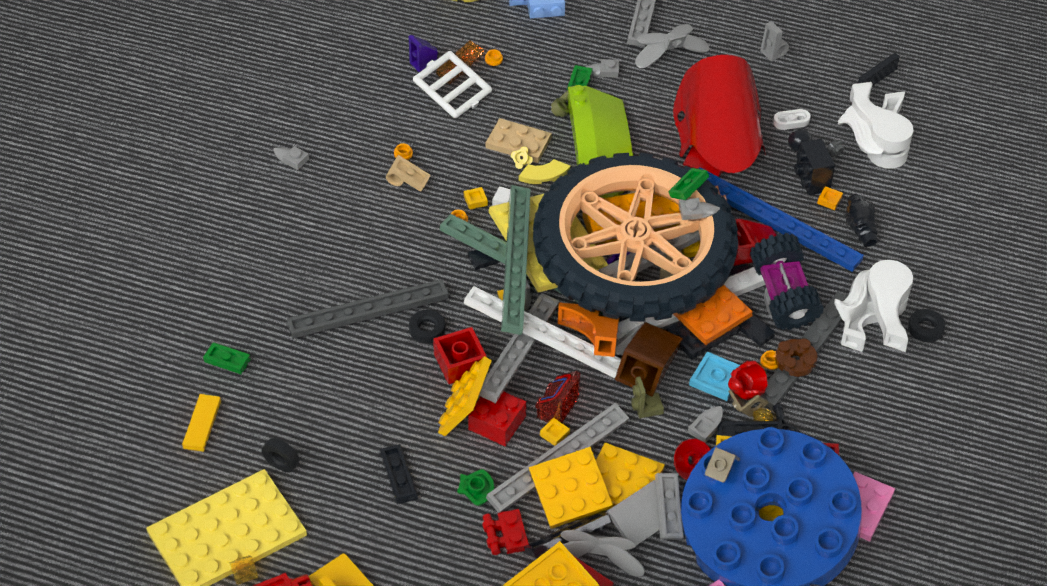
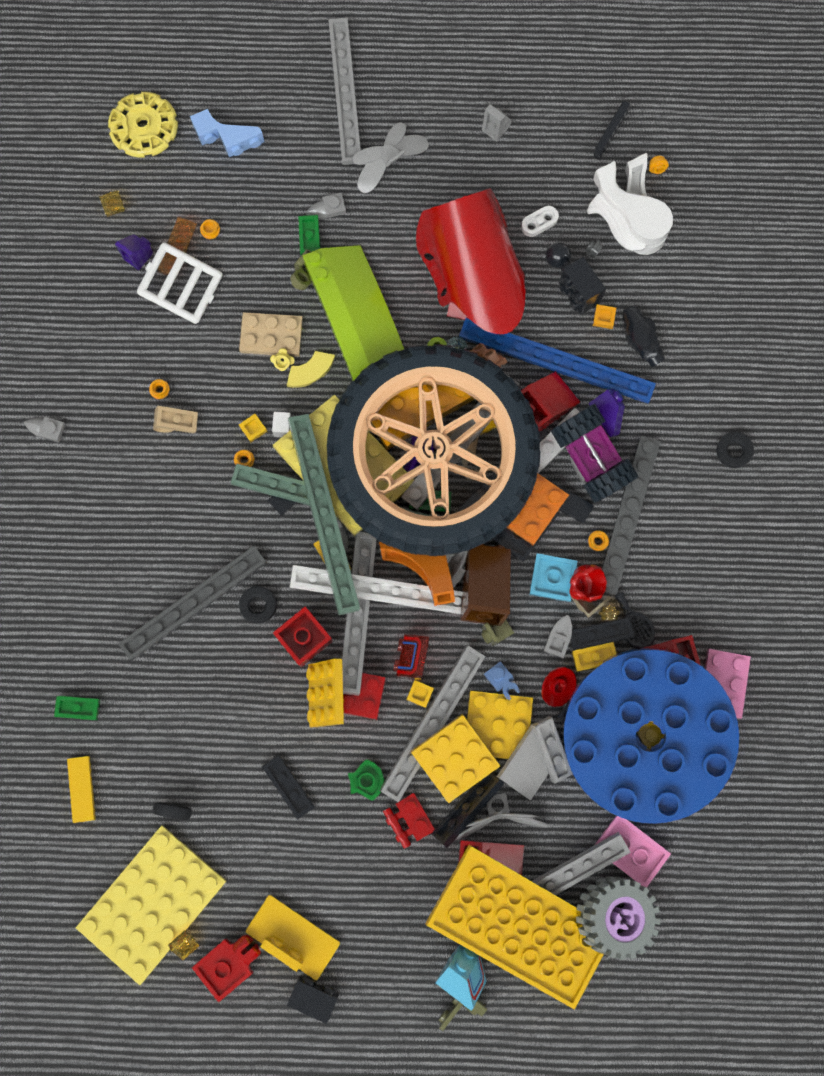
camera: 15 degrees left, 30 degrees up
(416, 22) = (112, 203): none -> clear yellow plate
(638, 440) = (501, 678): none -> medium blue plate
(688, 184) = (474, 383): green plate -> none
(695, 209) = (489, 409): light grey plate -> none
(720, 465) = (596, 709): dark tan bracket -> none
(800, 348) = (628, 525): reddish brown plate -> none
(814, 263) = (612, 410): none -> dark purple slope
(873, 298) = (683, 434): white animal -> none
(914, 102) = (658, 165): none -> light orange plate

